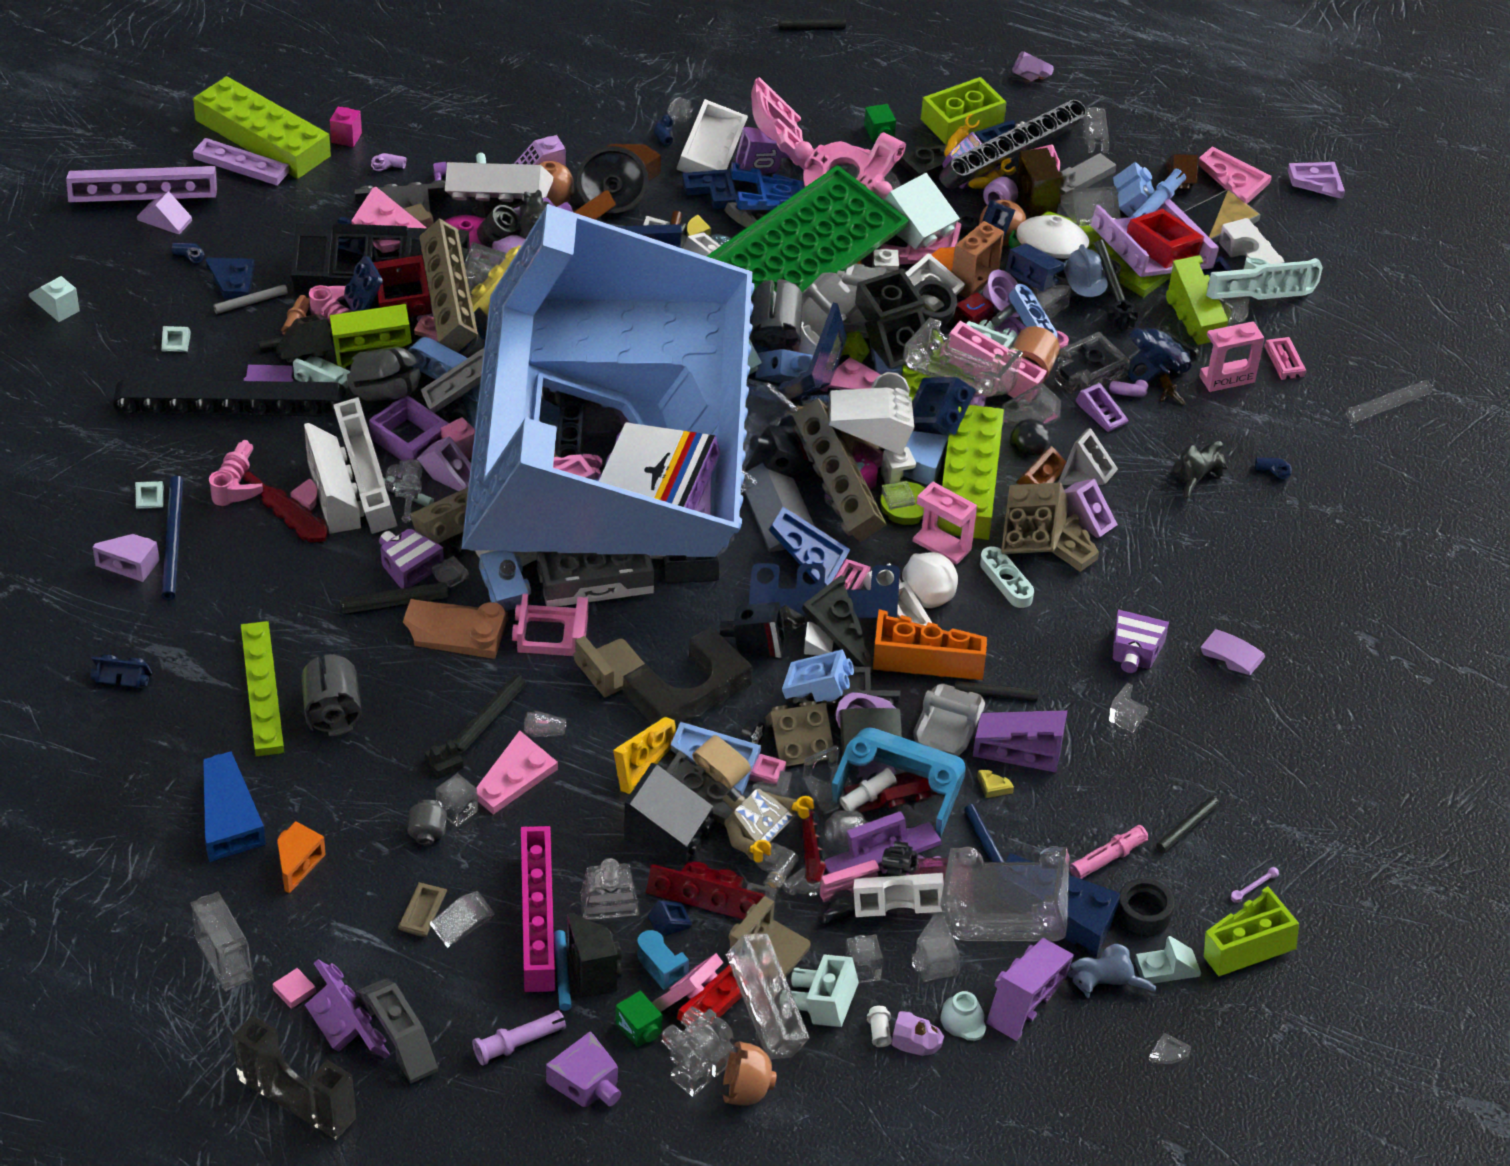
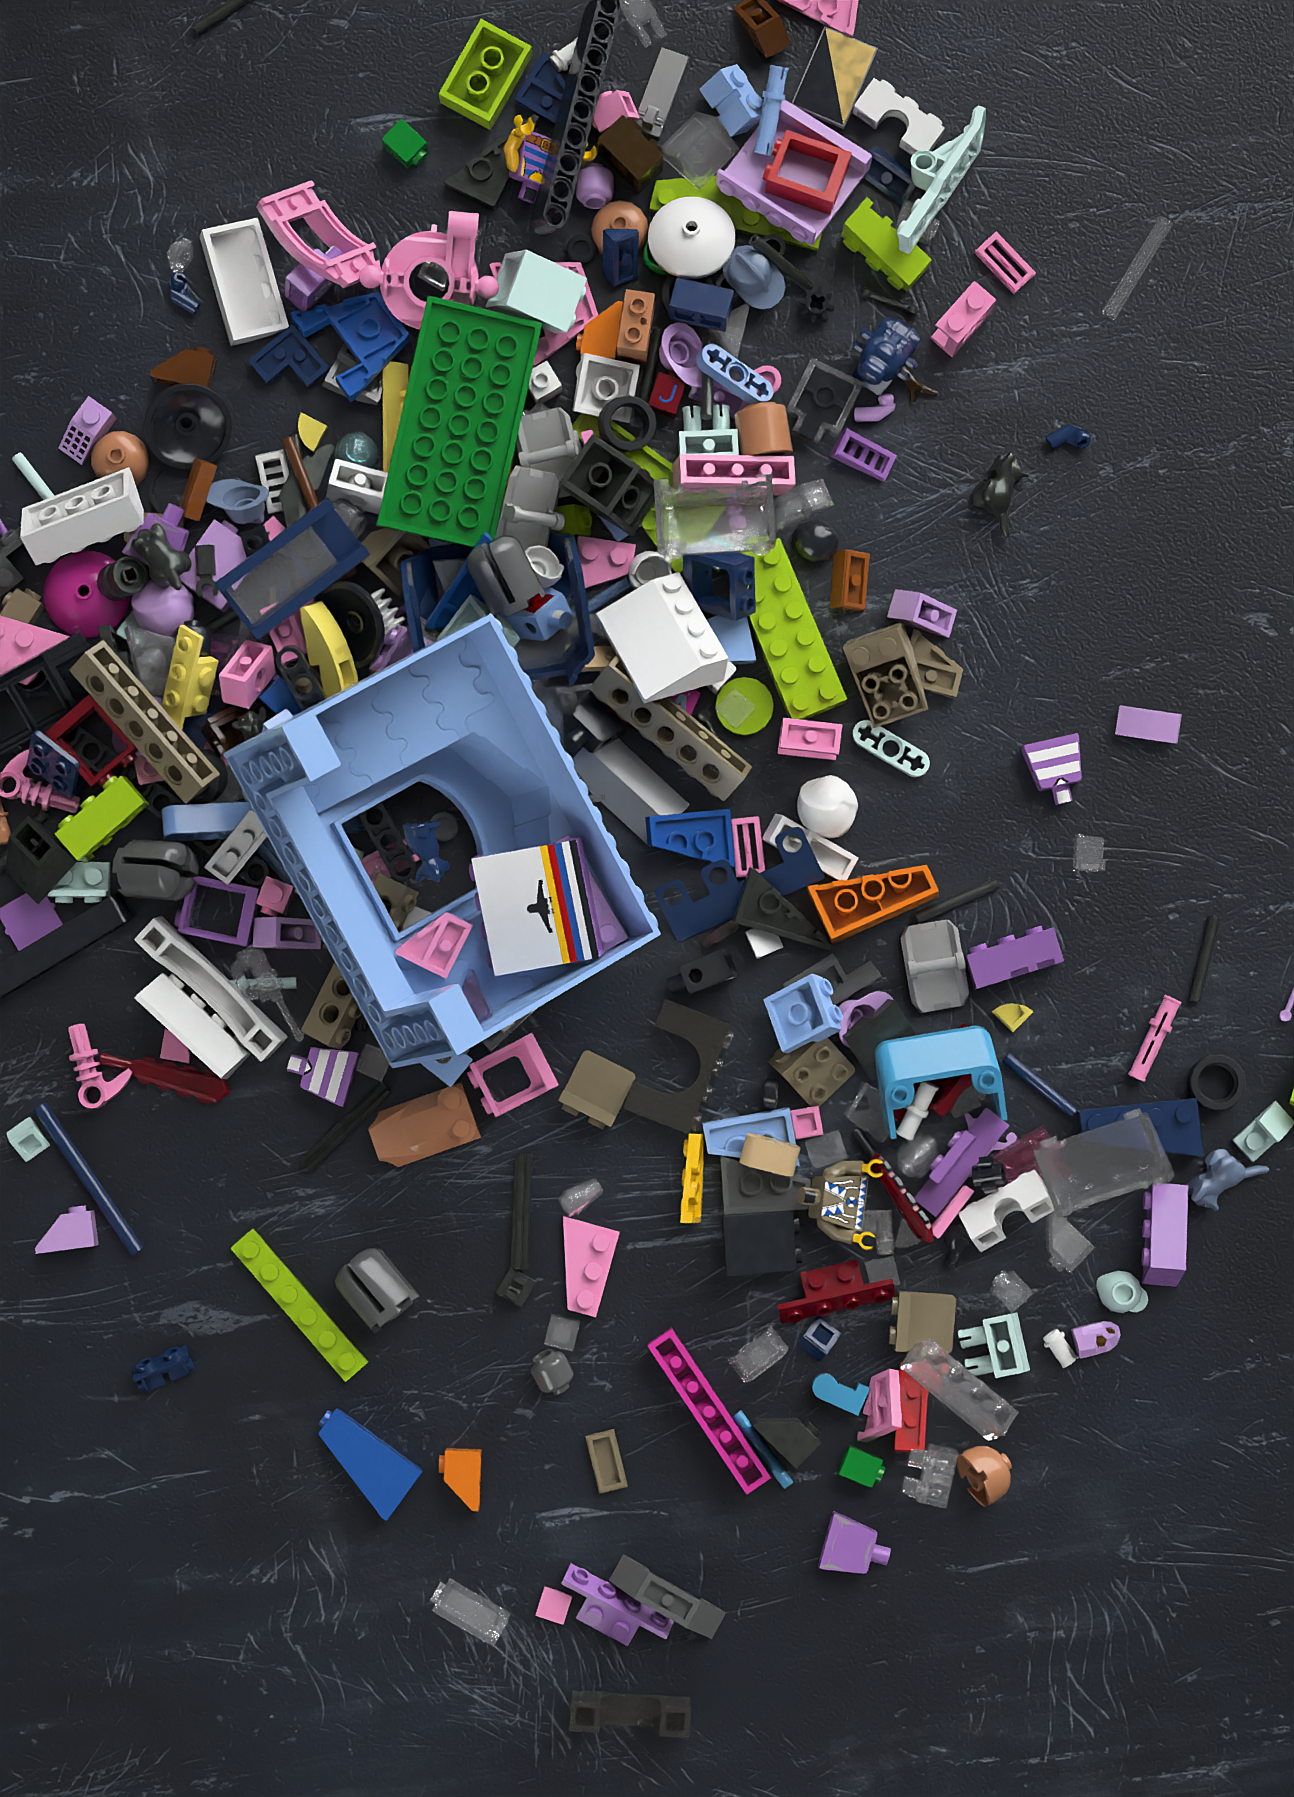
camera: 30 degrees left, 40 degrees up
(462, 918) = (650, 1451): clear slope -> none
(505, 1041) = (764, 1553): lavender pin -> none
(596, 402) = (424, 844): none -> dark blue animal
(1088, 461) = (892, 549): light grey slope -> none

